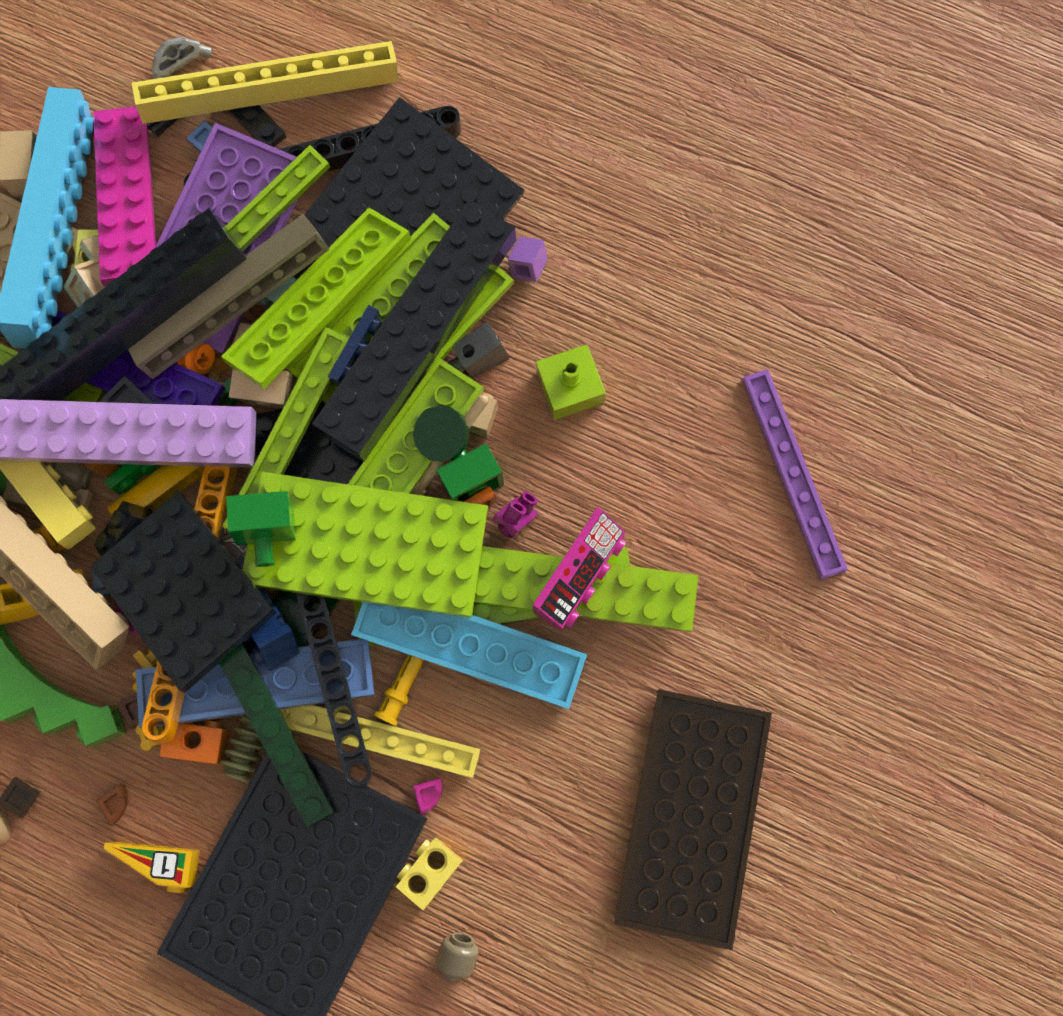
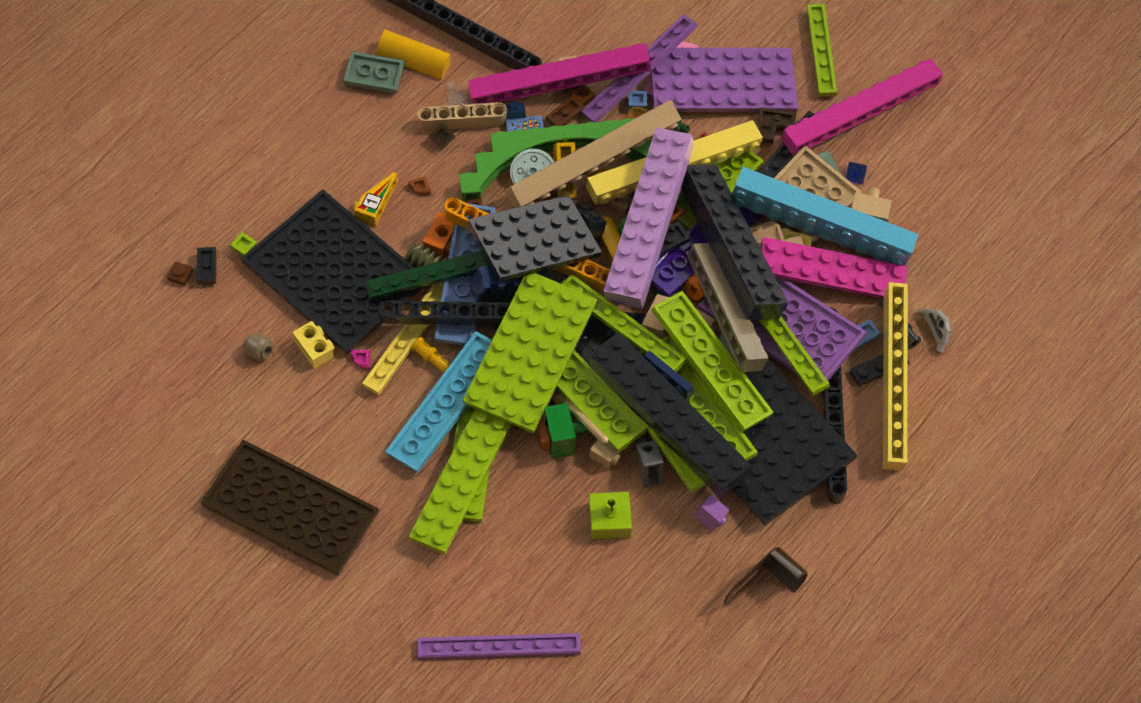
camera: 100 degrees right, 15 degrees down
(44, 647) = (528, 163): none -> light aqua shield
(261, 521) = (557, 283): green brick -> none
(441, 433) = (590, 411): dark green tile -> none
(516, 515) = (524, 453): magenta hips -> none
(573, 169) = (781, 565): none -> dark brown piece
(579, 570) = (469, 468): slope -> none

